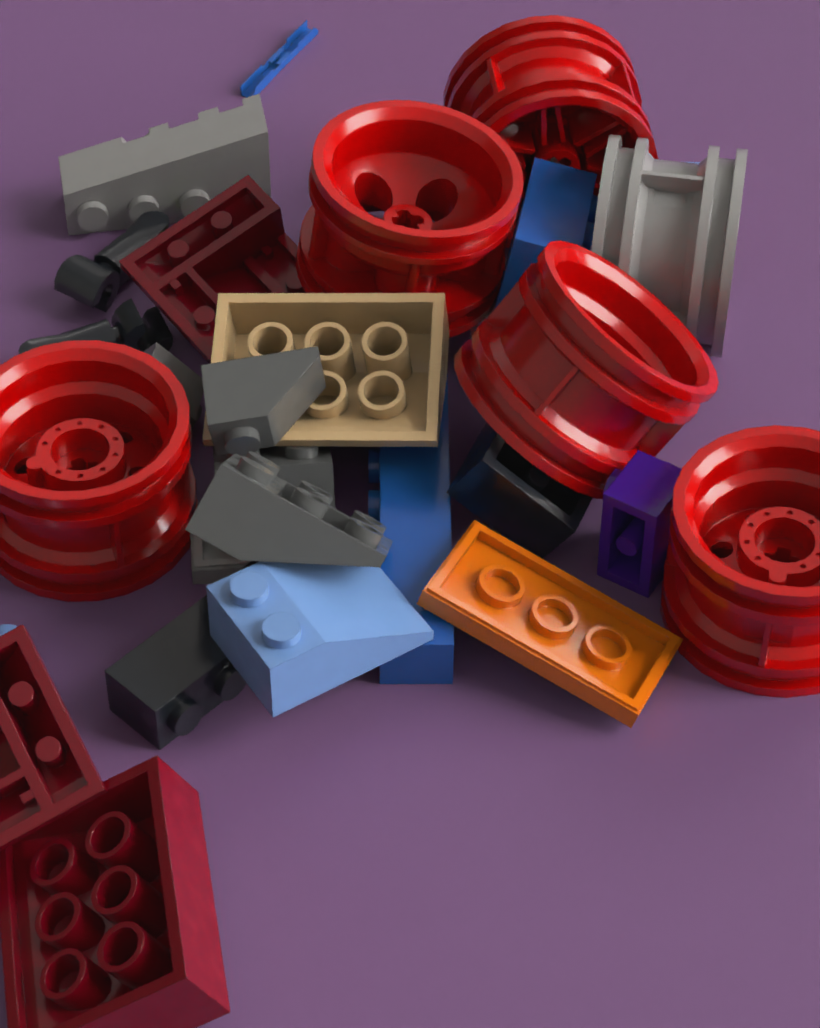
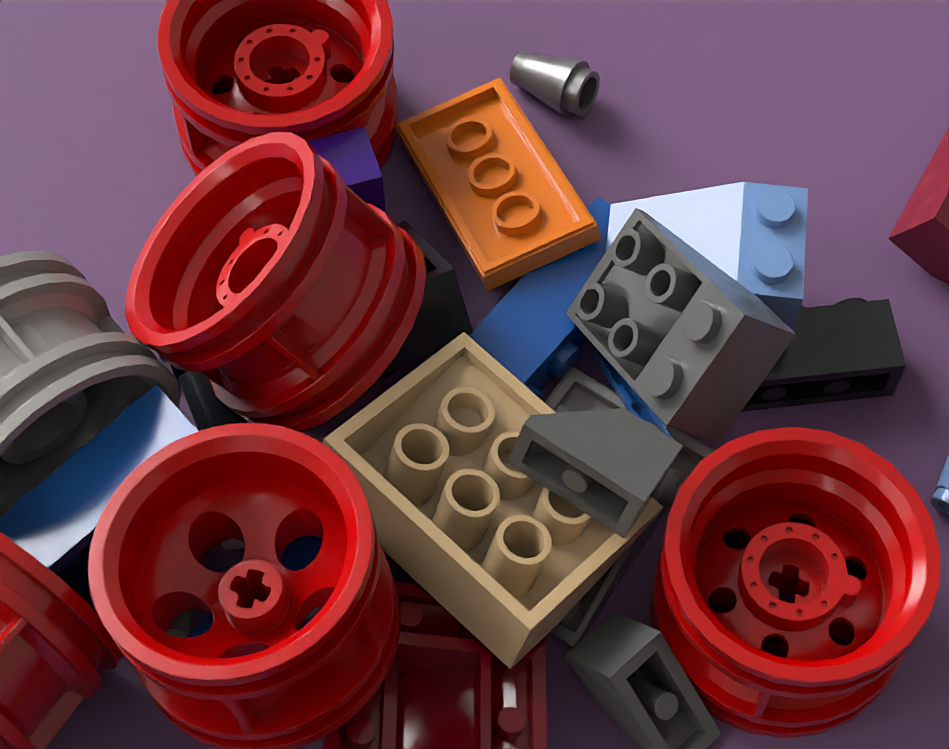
camera: 140 degrees left, 15 degrees up
(592, 752) = (559, 82): none -> flat silver cone

